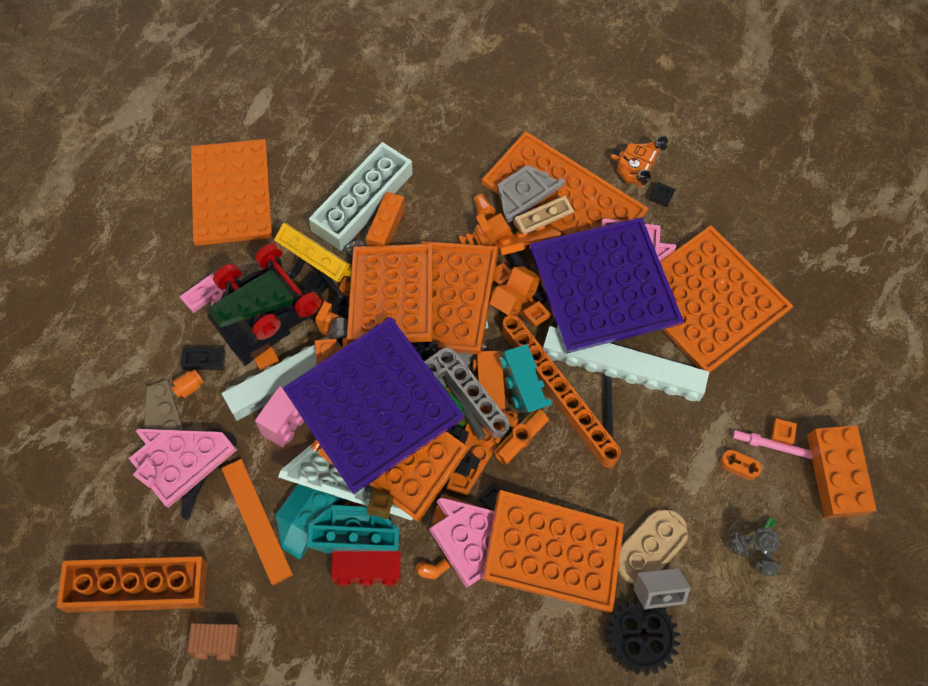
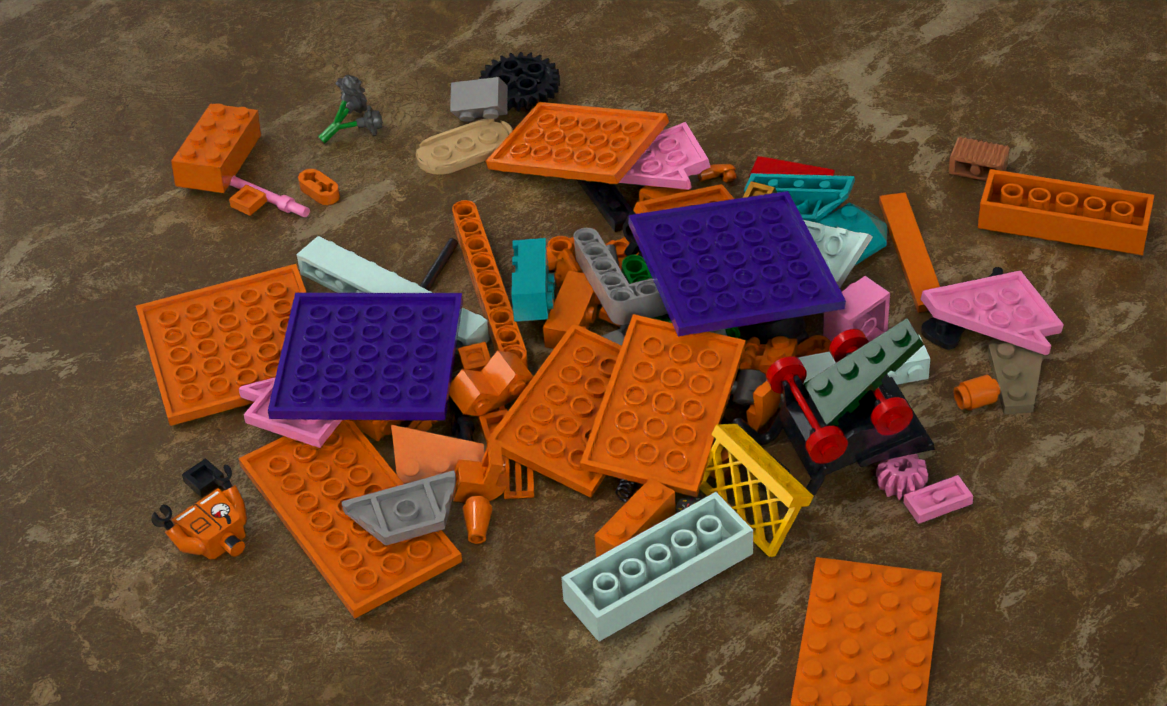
camera: 155 degrees left, 20 degrees down
(147, 473) = (1041, 299): bright pink tile -> none
(203, 358) = (950, 419): black plate -> none
(543, 215) = (392, 470): tan slope -> none

